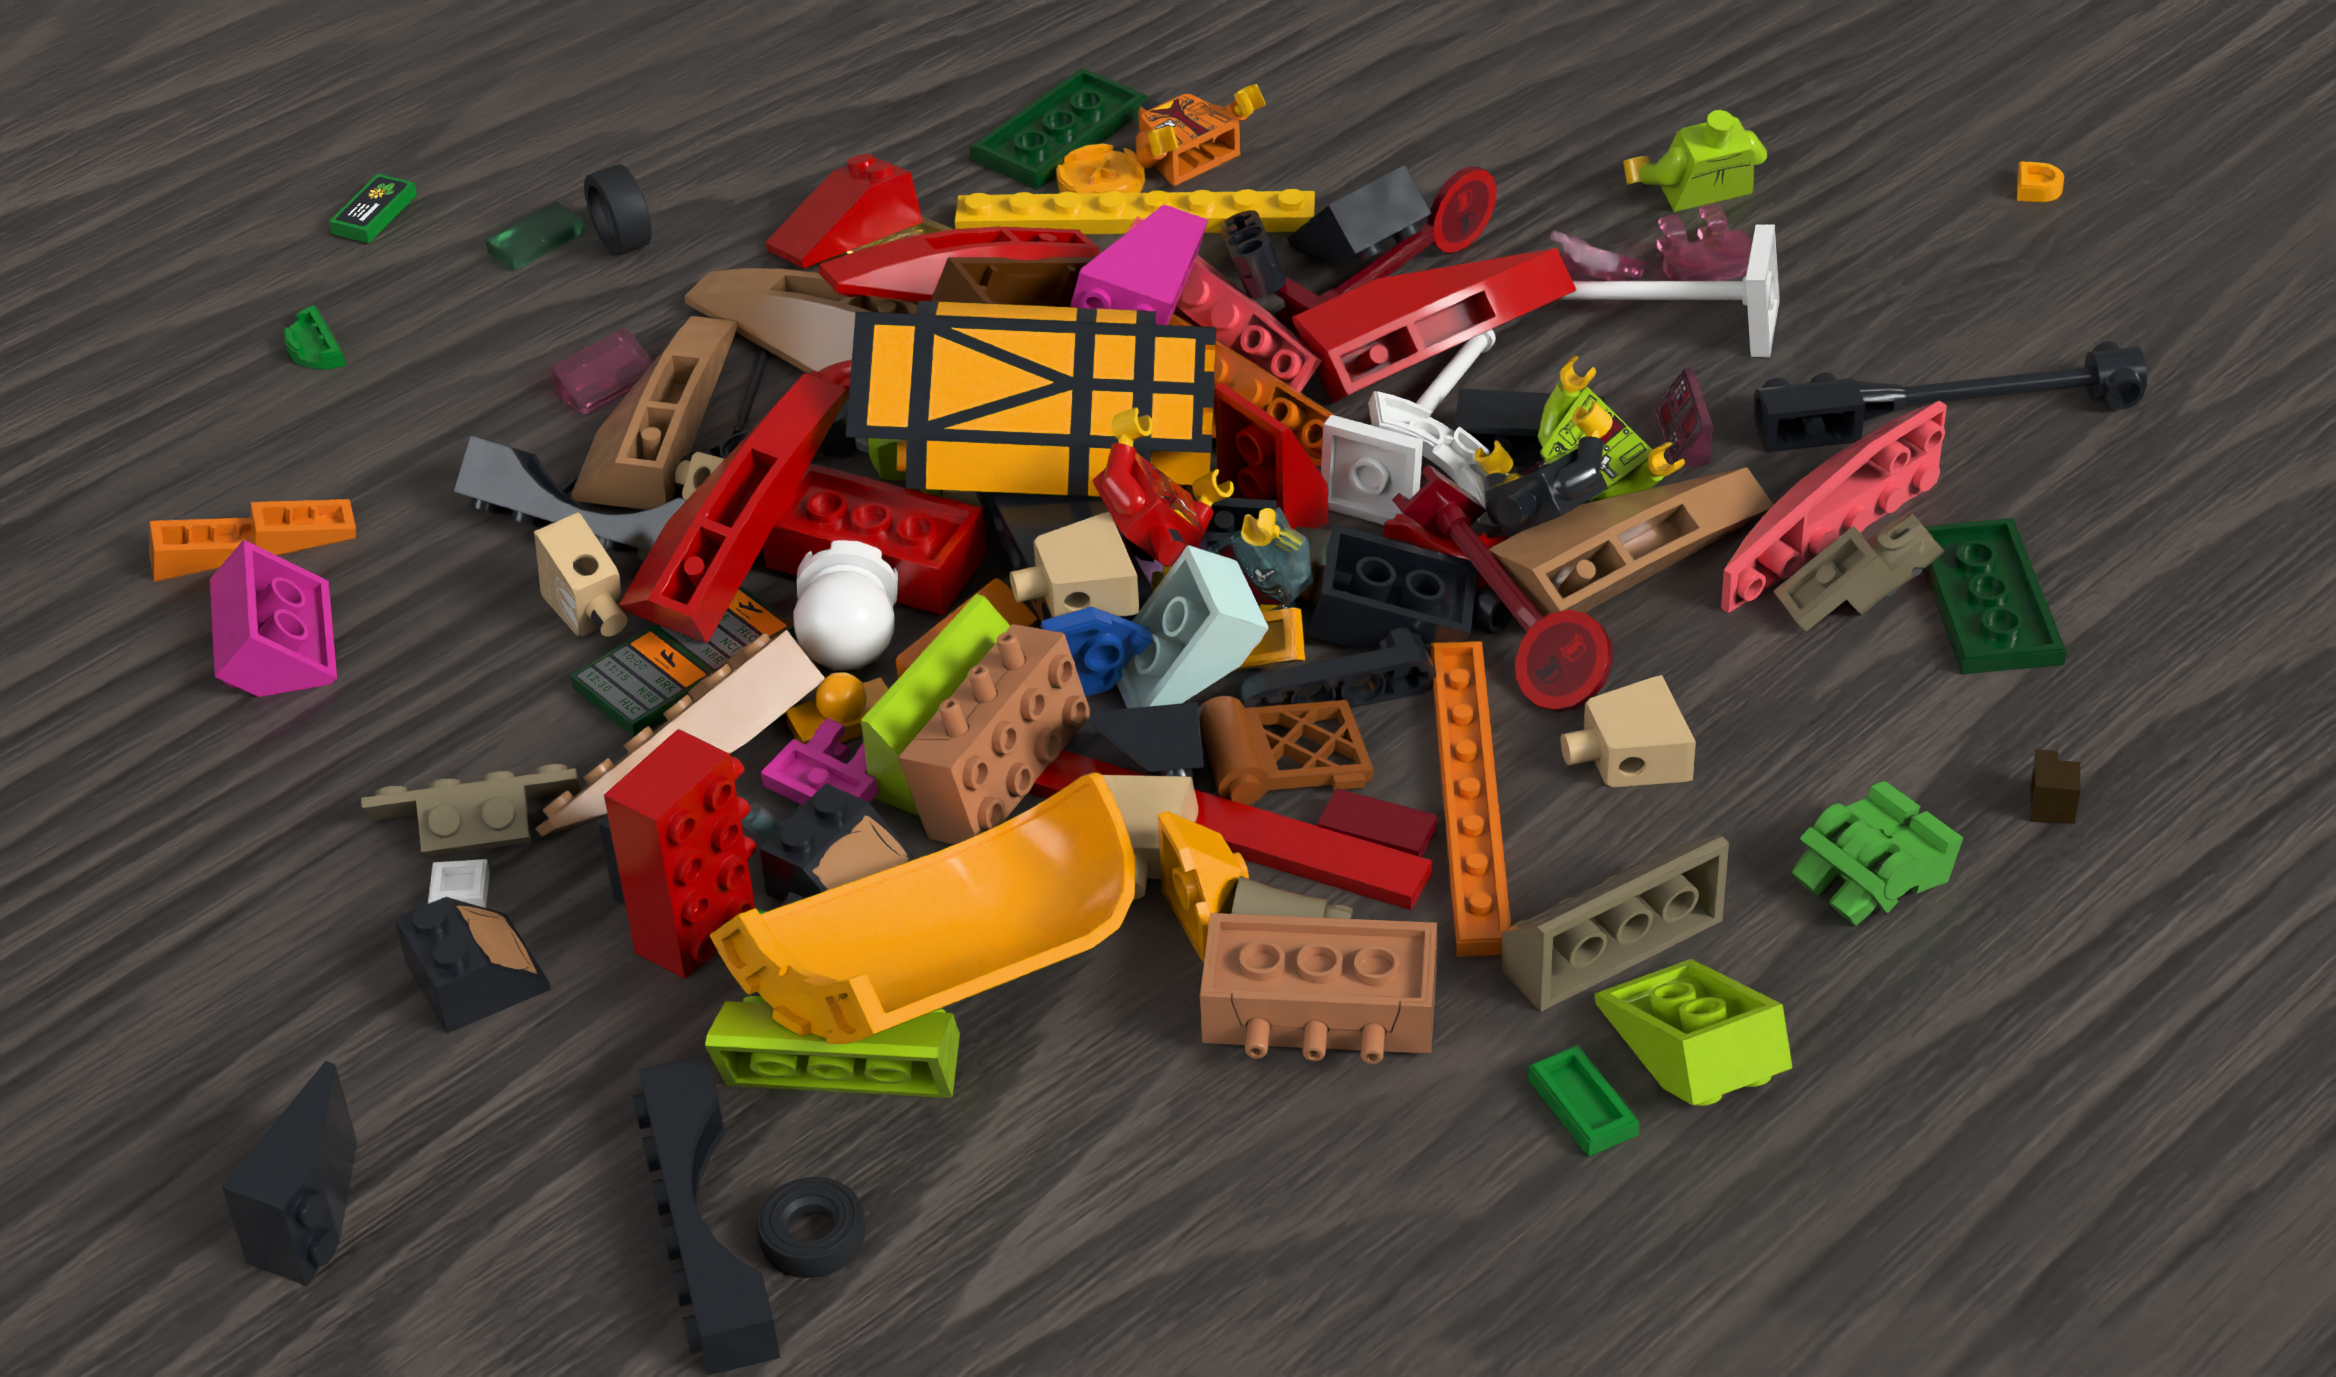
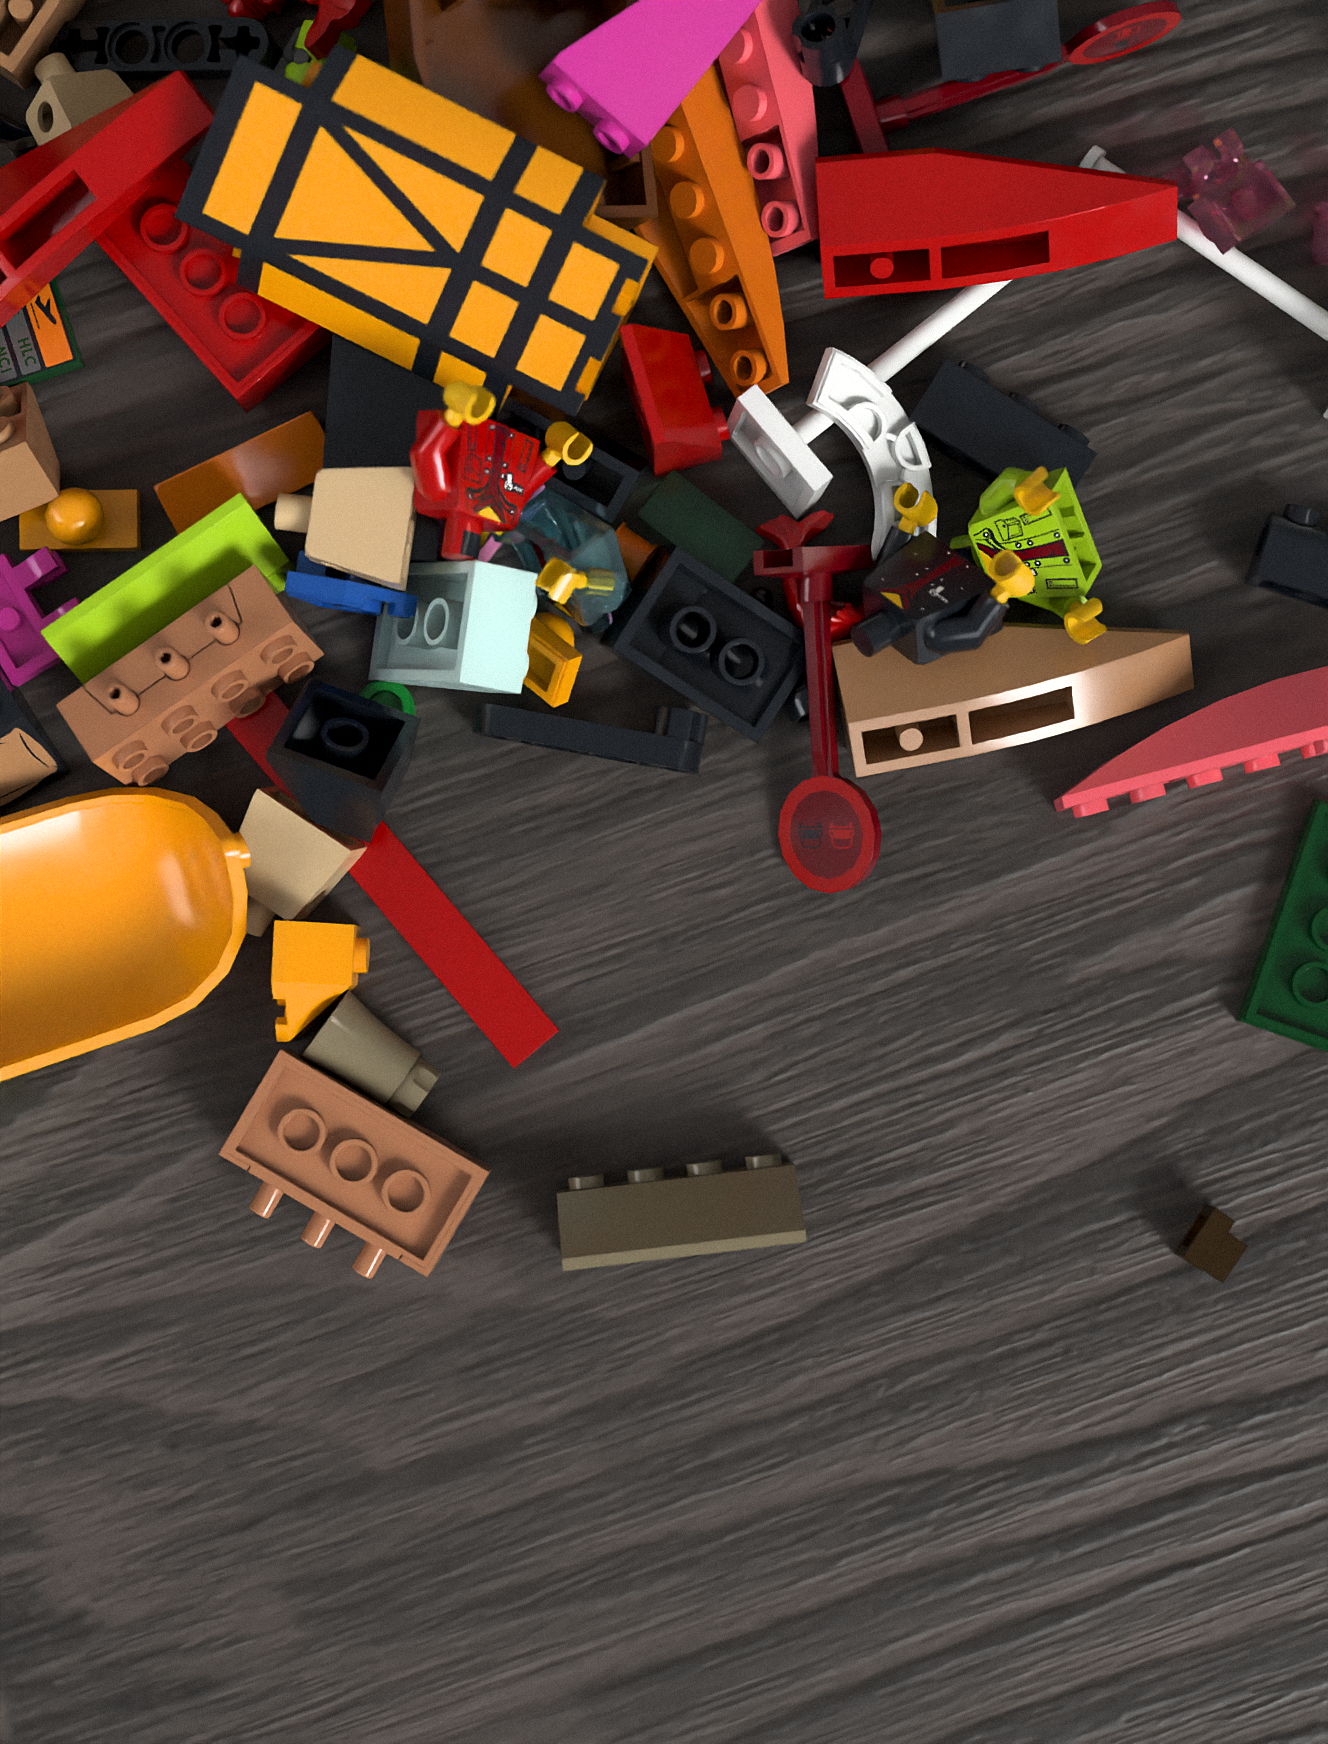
camera: 20 degrees right, 45 degrees up
(845, 605) = (123, 397): white tile -> none
(1245, 754) = (445, 789): dark orange piece -> none
(1379, 822) = (533, 950): dark red tile -> none
(1470, 799) = (648, 949): orange tile -> none
(1583, 1100) = (541, 1395): green tile -> none
(1634, 736) = (843, 966): tan torso -> none
(1686, 421) = (1176, 507): slope -> none
(1699, 1030) = (683, 1372): lime slope -> none
(1859, 570) = (1206, 859): dark tan plate -> none
(1877, 850) = (980, 1250): bright green hips -> none

